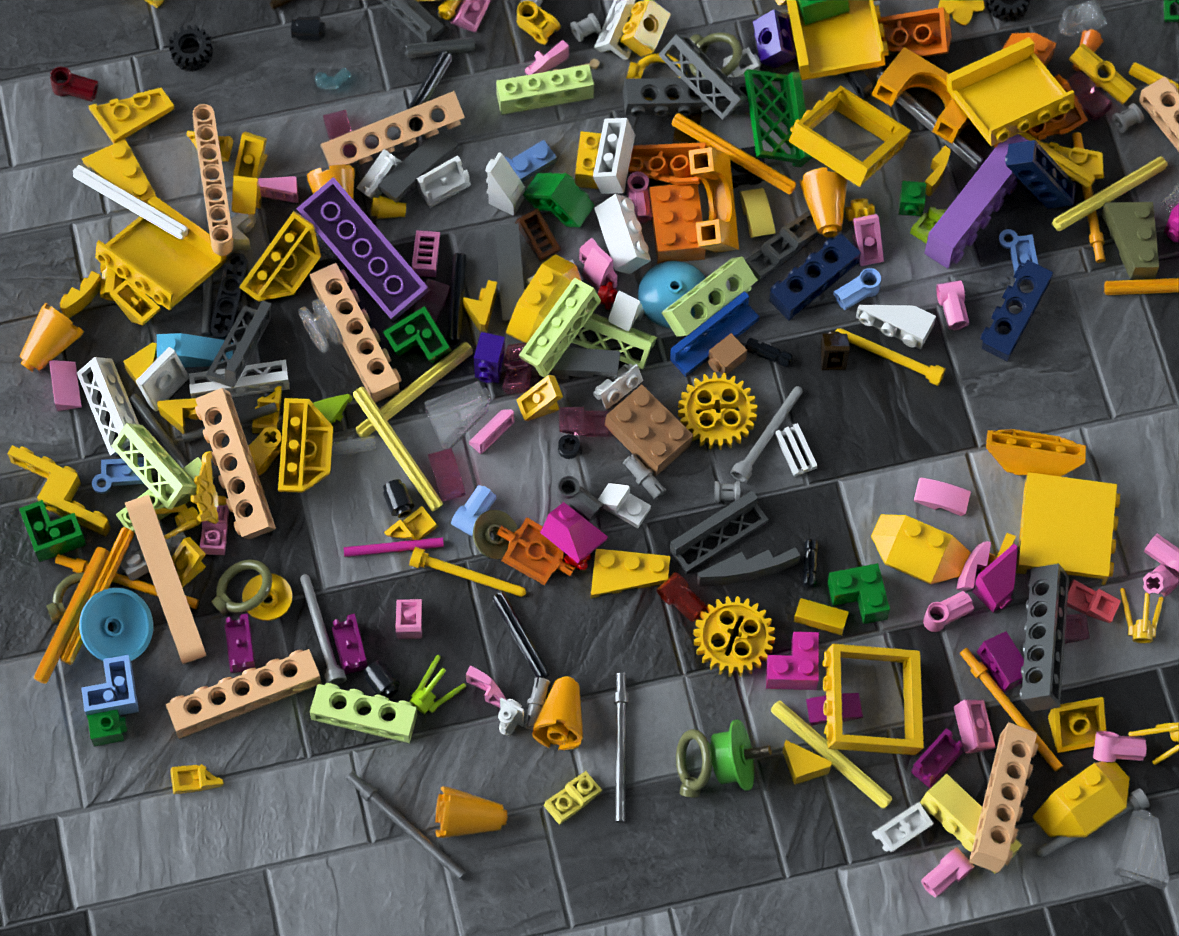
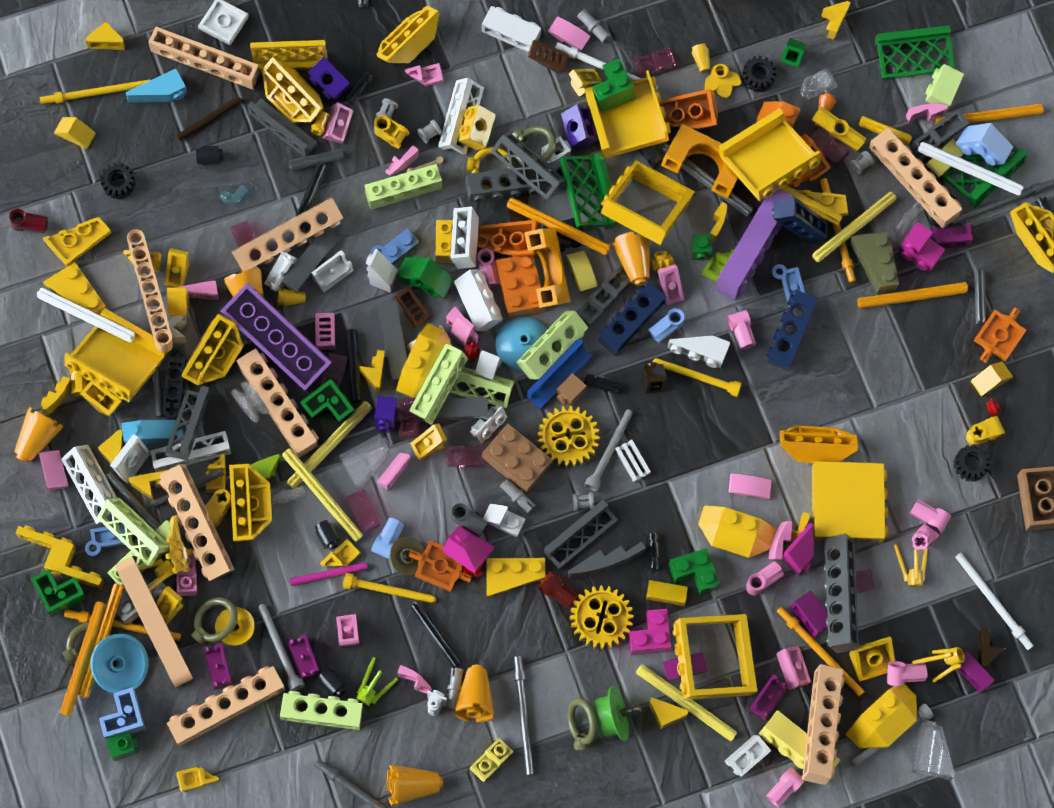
camera: 10 degrees left, 5 degrees up
(561, 445) = (461, 479): black bush -> none
(1091, 602) = (874, 558): coral slope -> none

